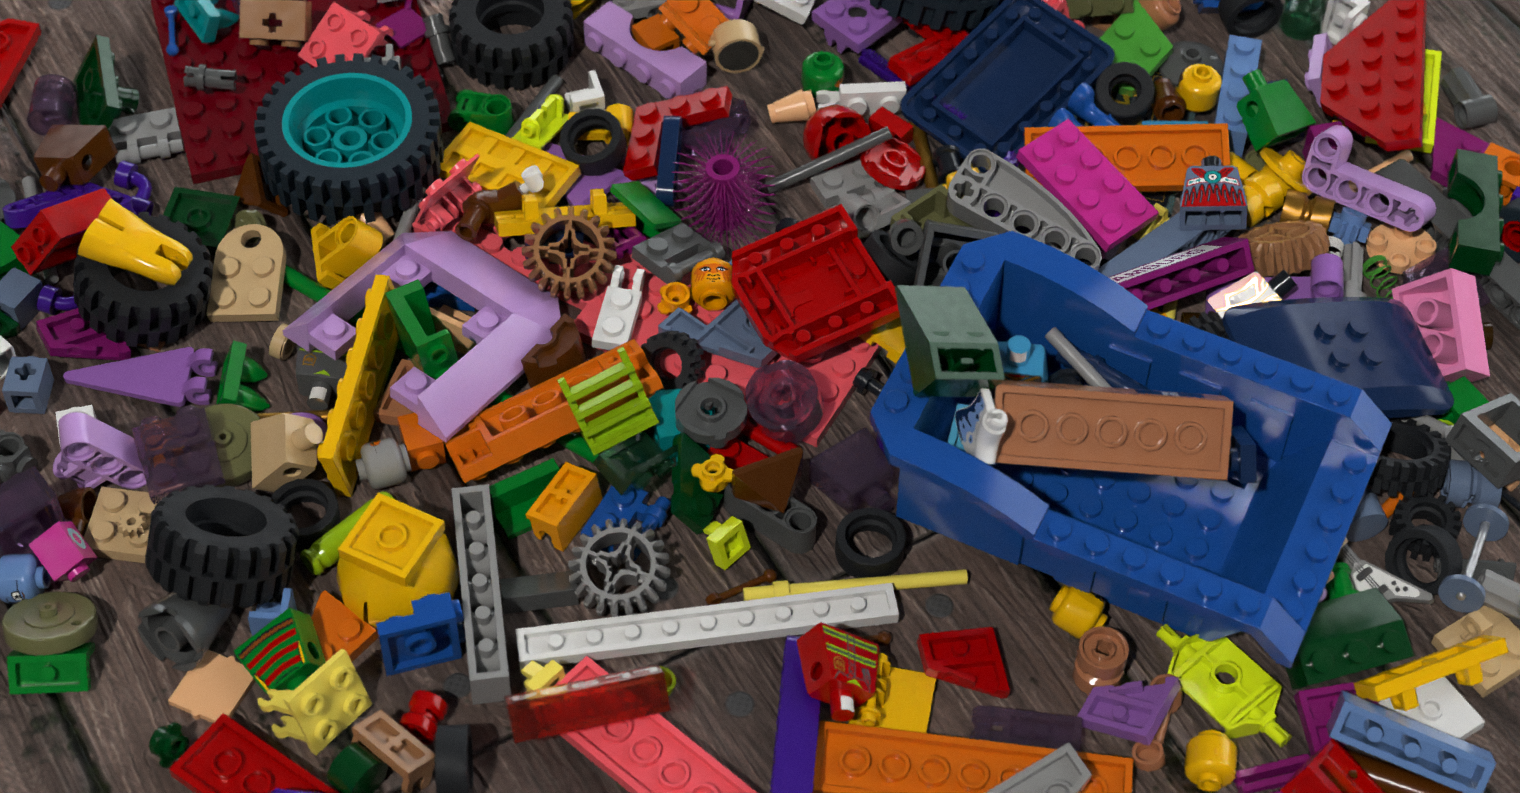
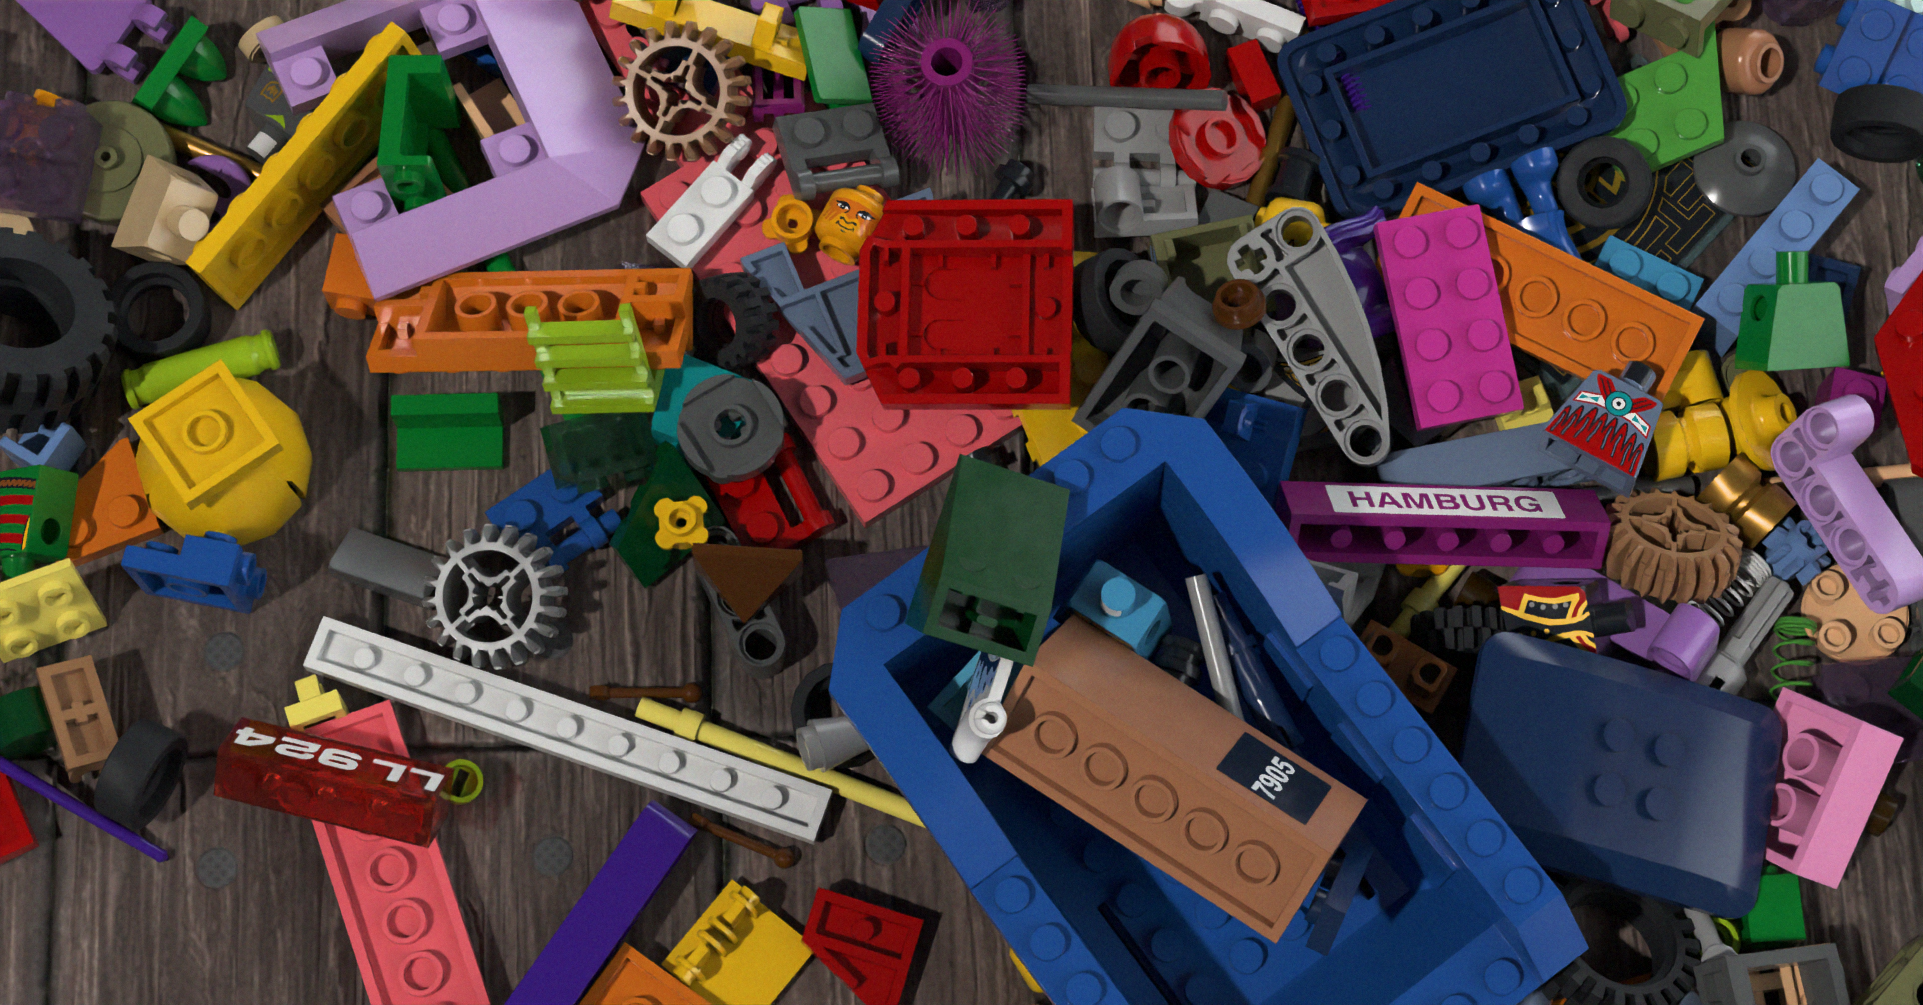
camera: 25 degrees right, 20 degrees up
(383, 463) = (289, 289): light grey head -> none
(424, 713) = (144, 696): red wheel -> none
(480, 594) = (302, 544): light grey brick -> none
(557, 355) = (597, 240): reddish brown cylinder -> none
(565, 505) = (483, 464): light orange hinge -> none
(727, 541) = (658, 620): neon yellow tile -> none
(780, 382) = (808, 451): clear purple brick -> none
(838, 668) = (674, 896): red torso -> none
(880, 546) = (828, 743): none -> light grey cone
(972, 212) = (1239, 304): none -> reddish brown plate
(1167, 101) = (1666, 219): reddish brown cone -> none
(1199, 87) = (1721, 221): yellow head -> none

